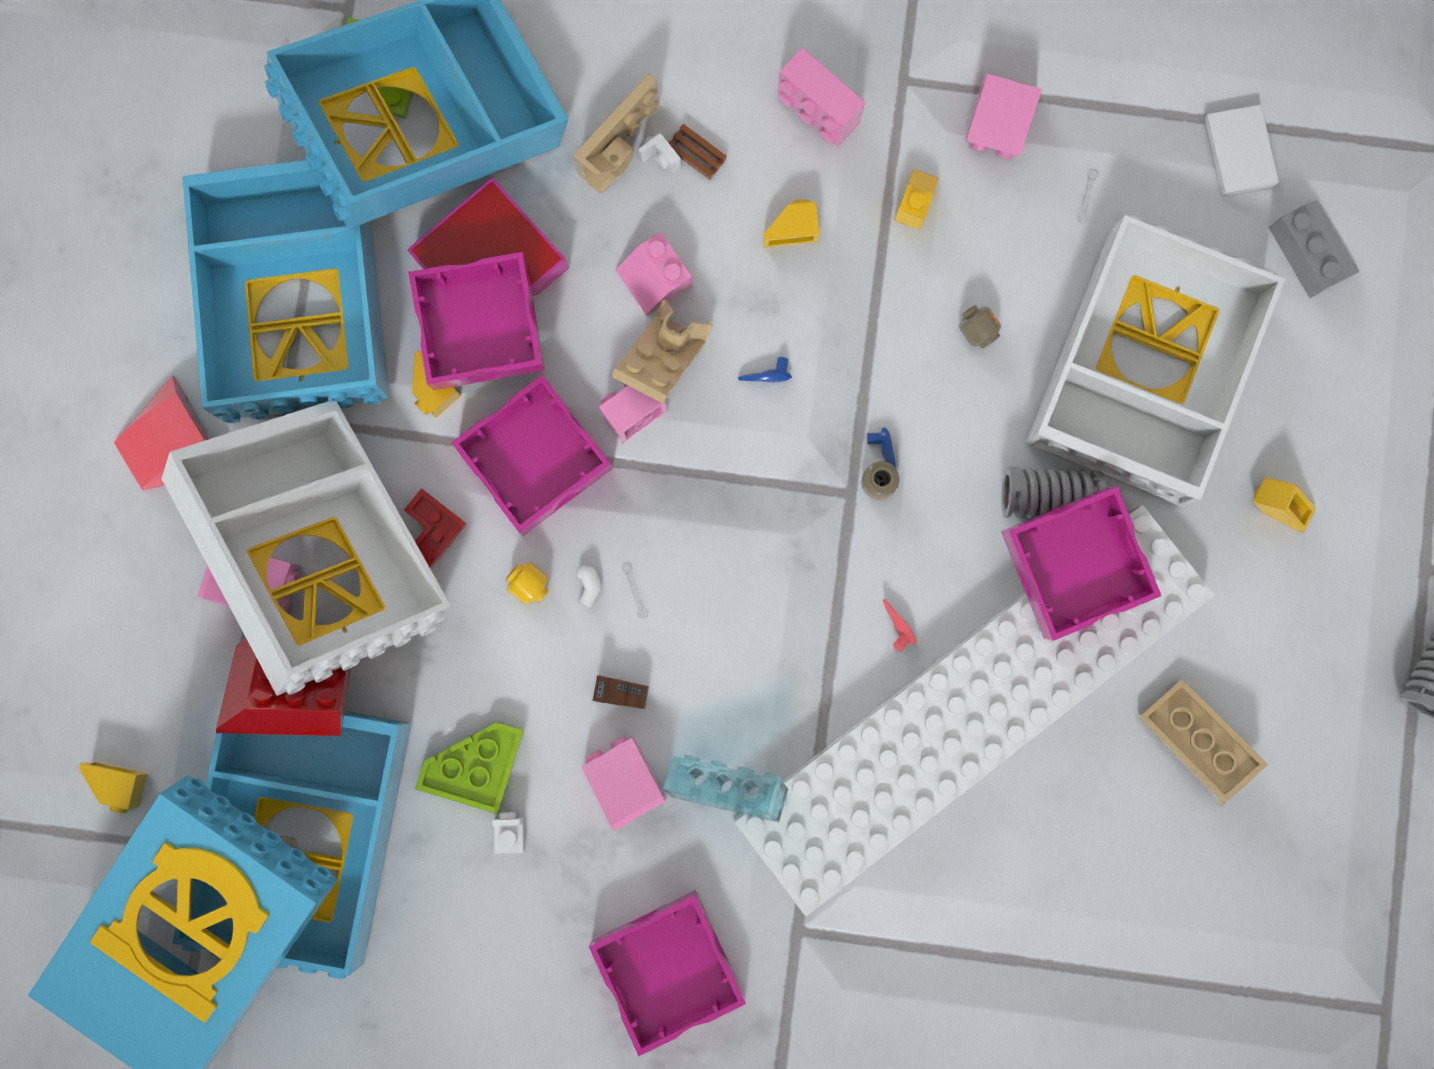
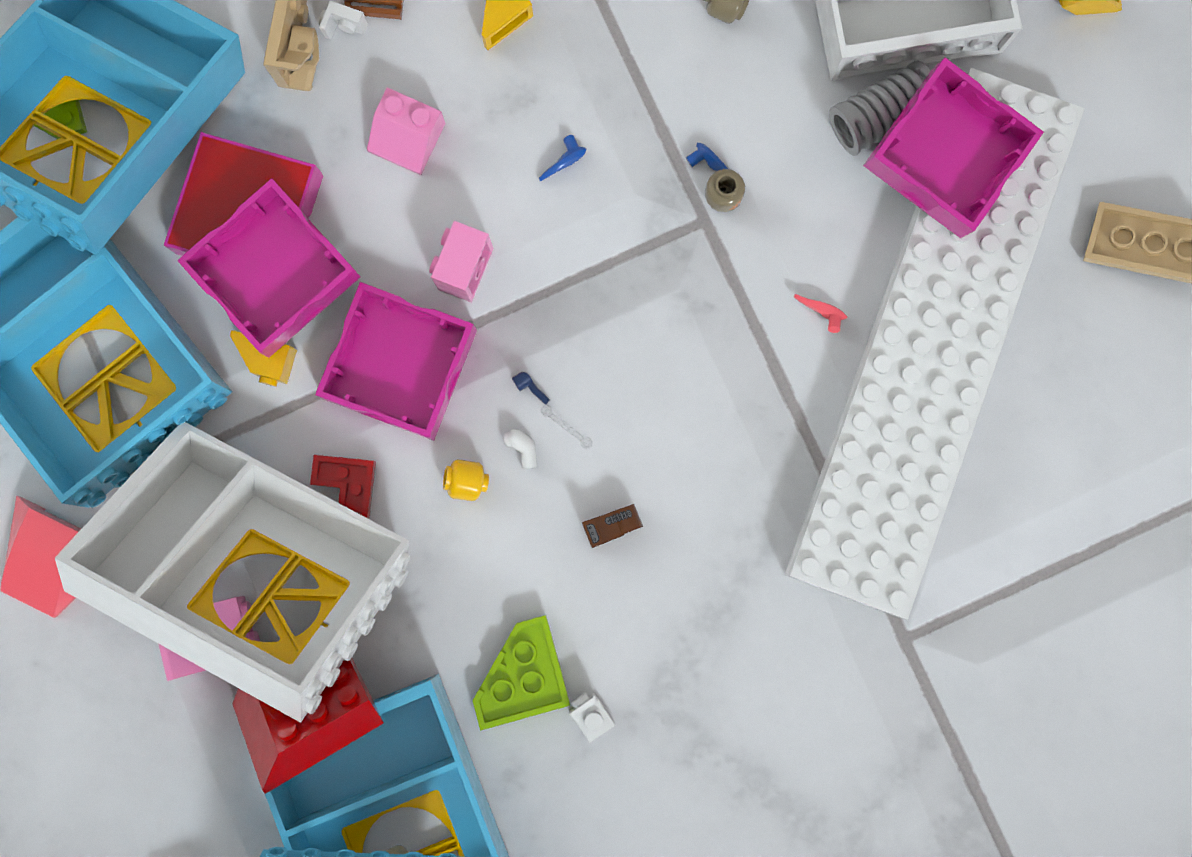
camera: 30 degrees left, 0 degrees up
(623, 531) = (523, 381): none -> dark blue hand
(623, 782) = (666, 603): bright pink slope -> none
(662, 355) = (458, 195): tan plate -> none
(667, 972) = (814, 750): dark pink tile -> none
(765, 805) = (809, 542): clear light blue brick -> none

